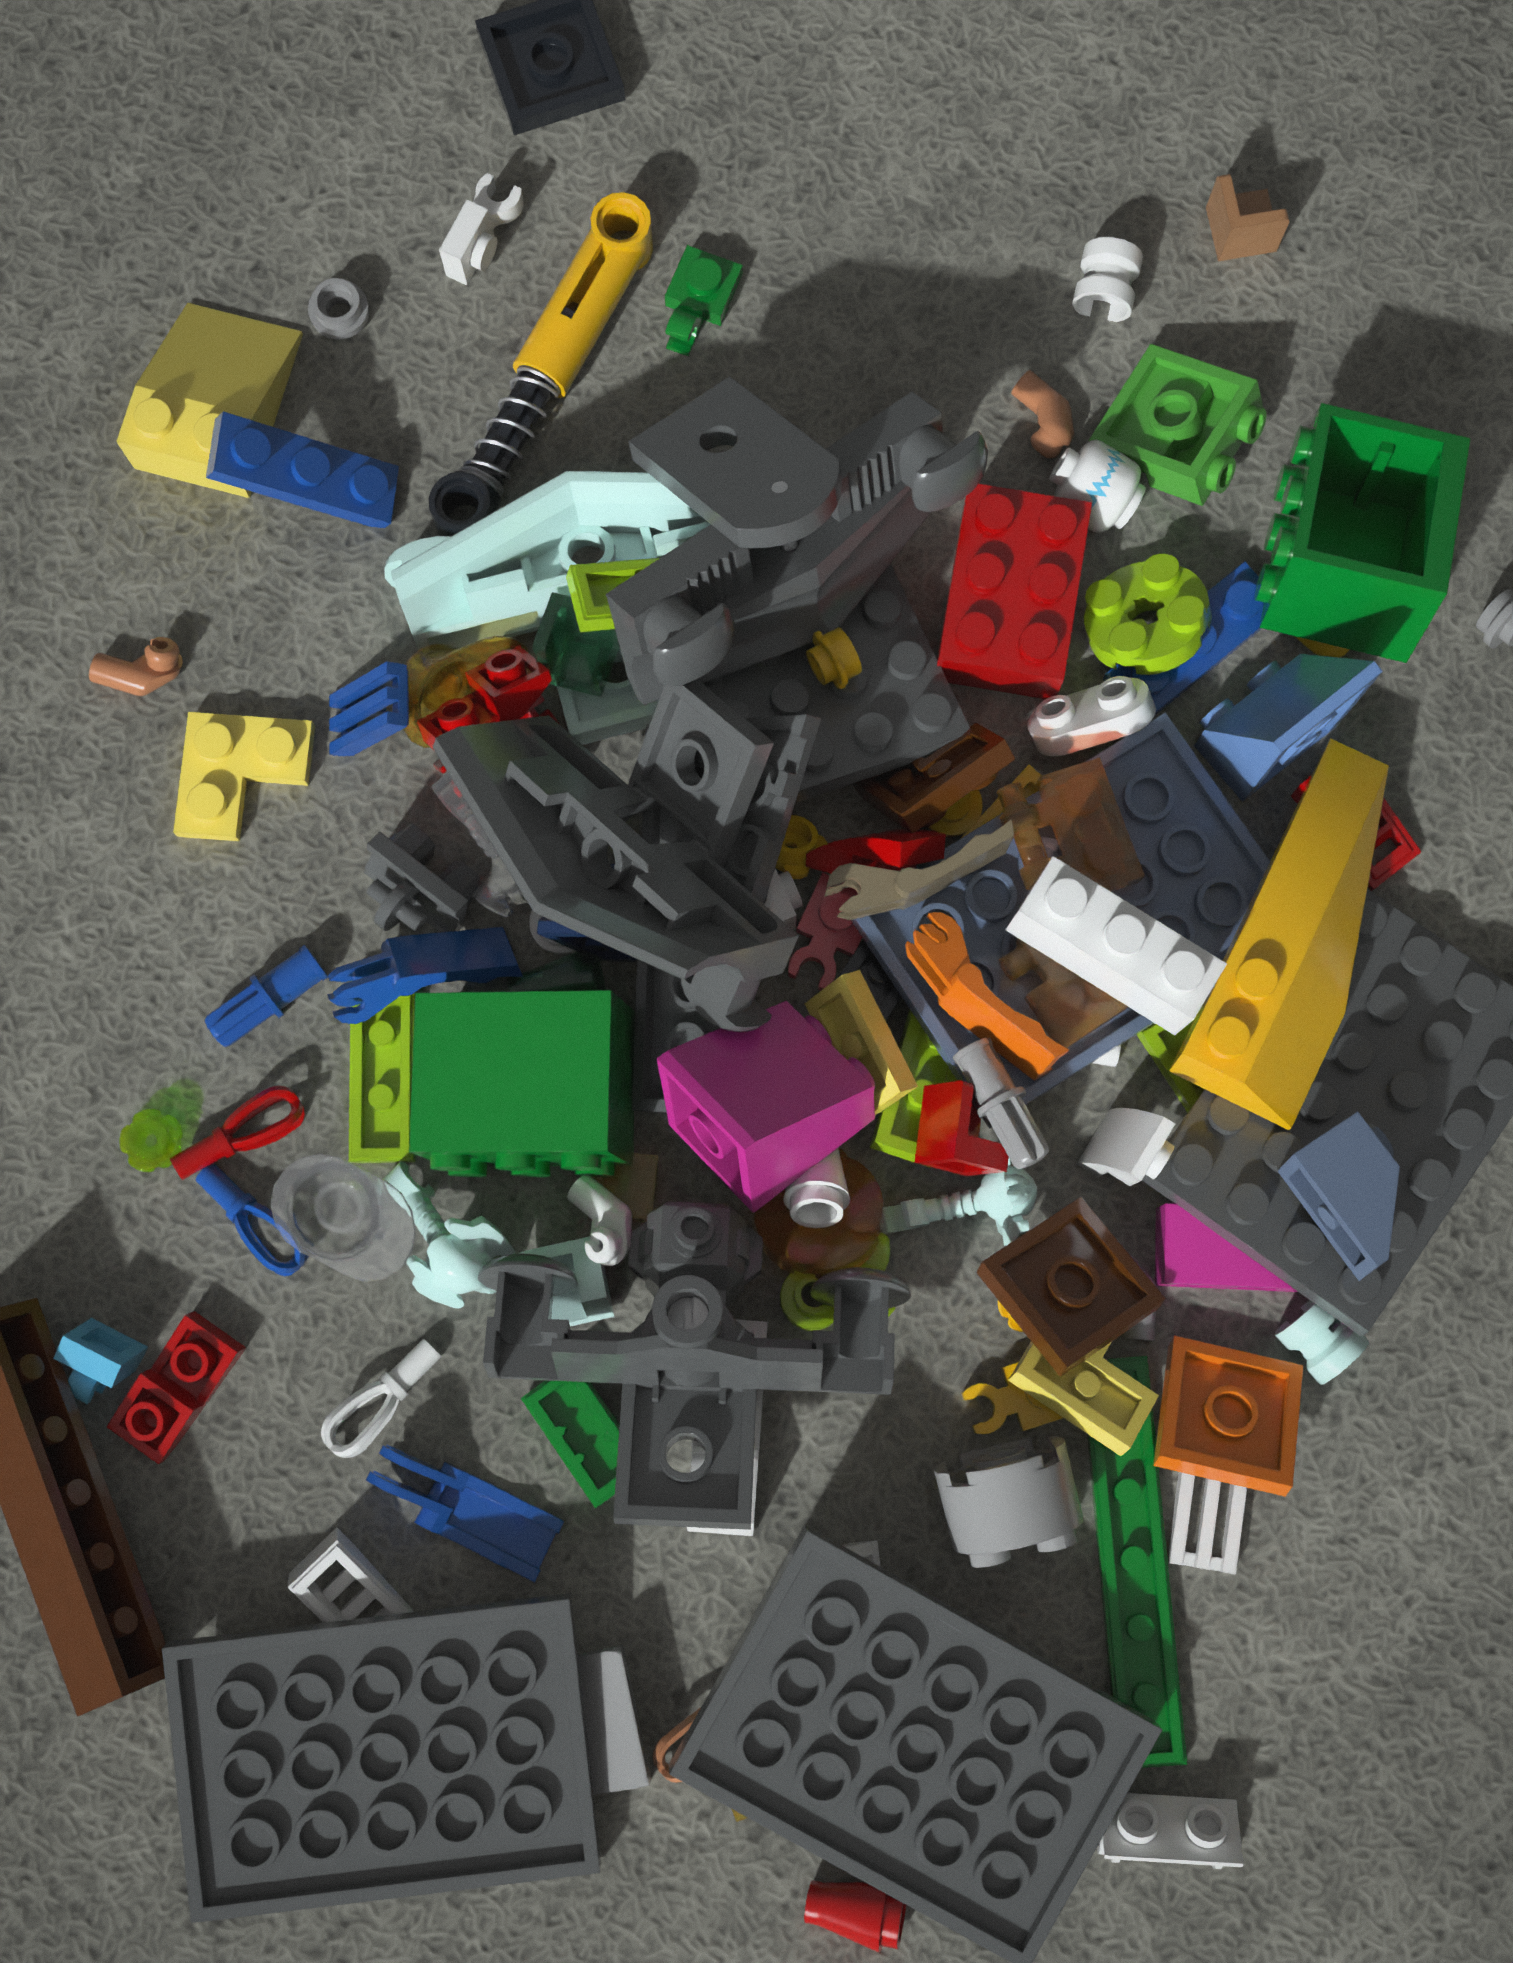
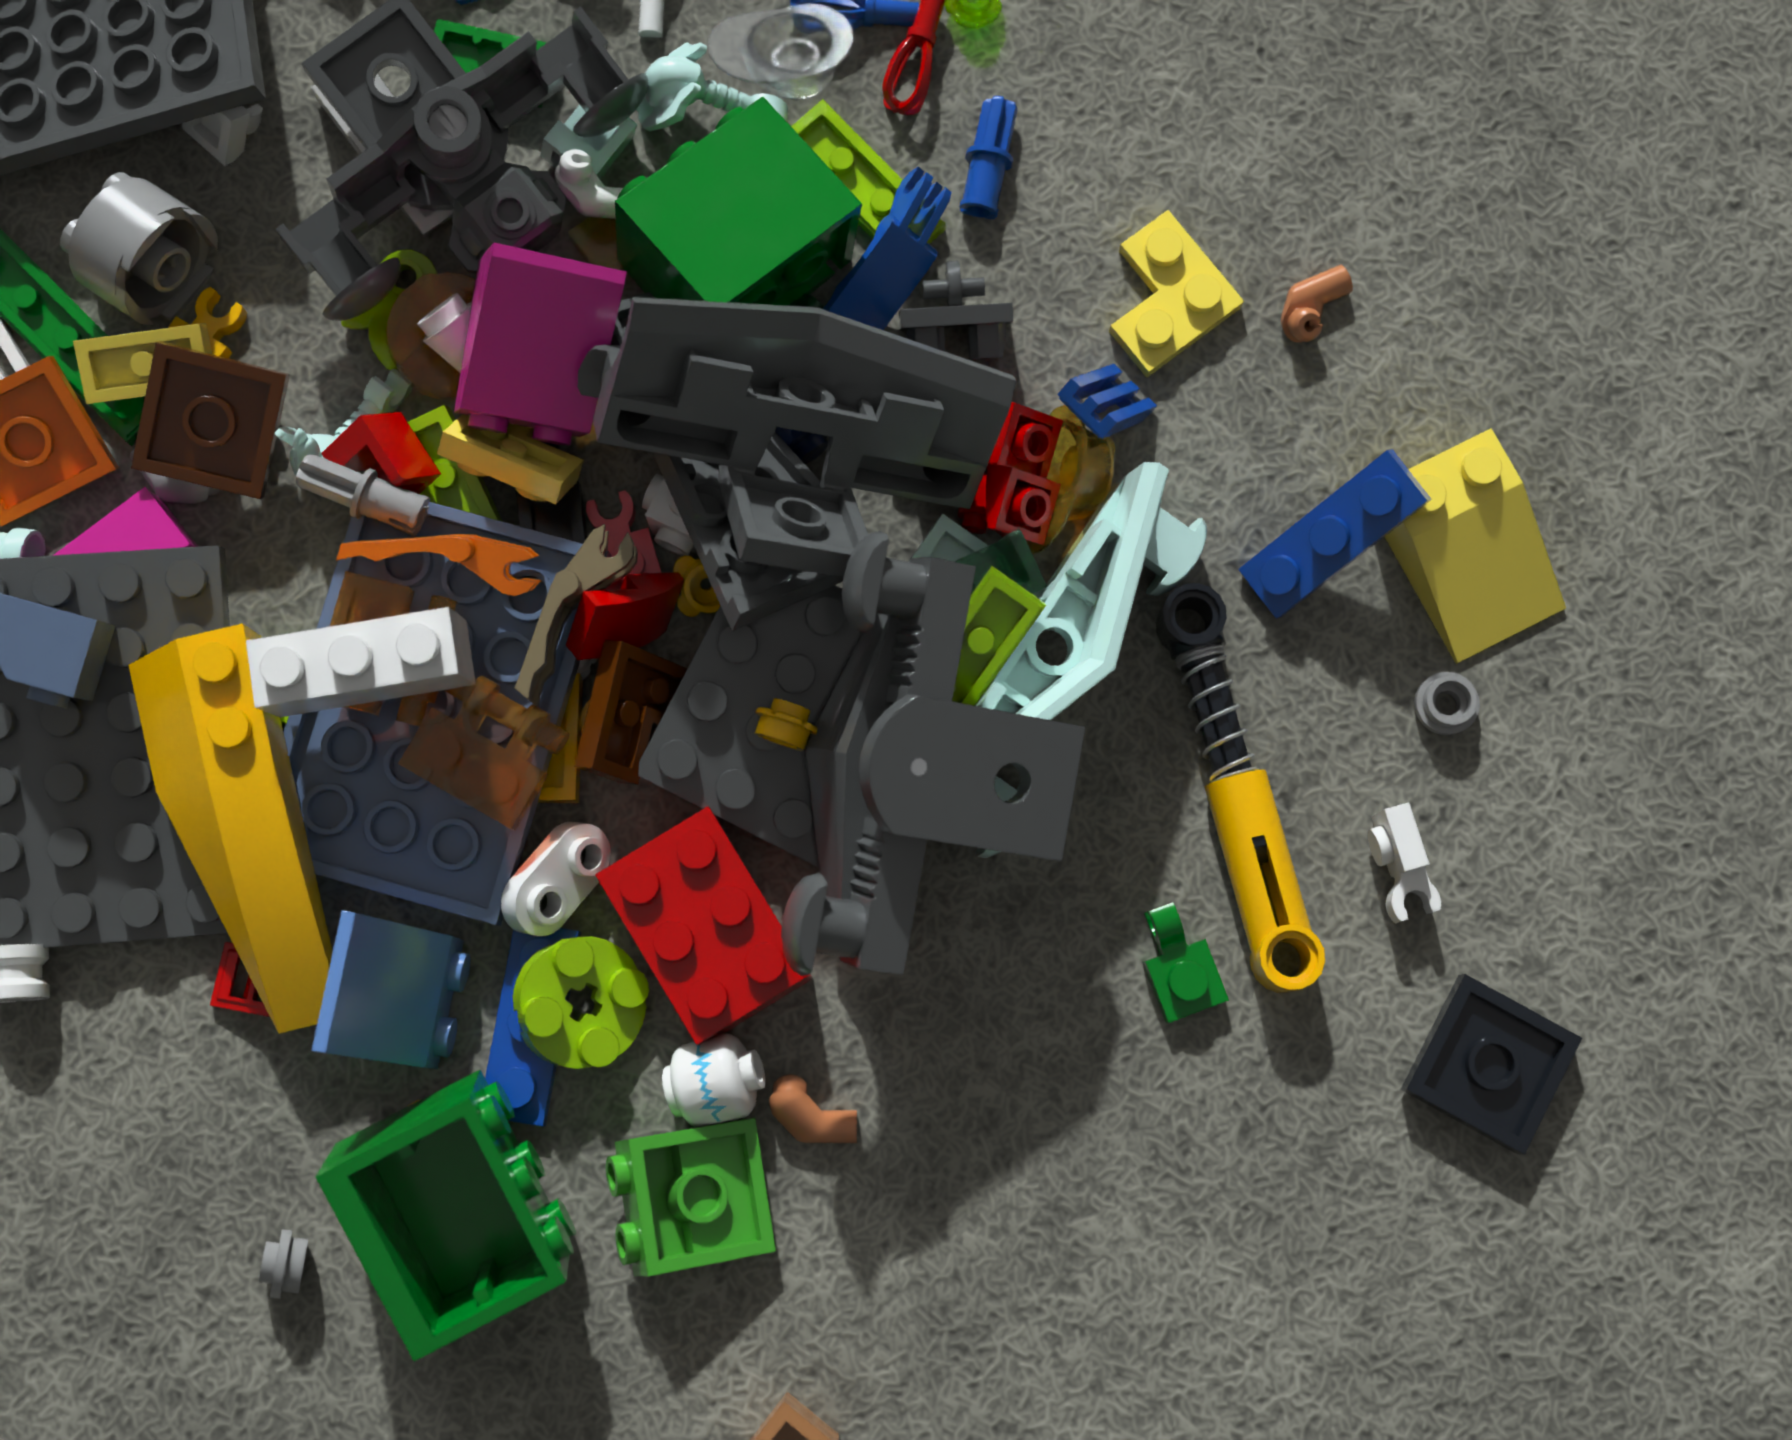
camera: 135 degrees right, 0 degrees up
(1109, 270) = (859, 1278): white wheel -> none
(1129, 1145) = (250, 558): white slope -> none

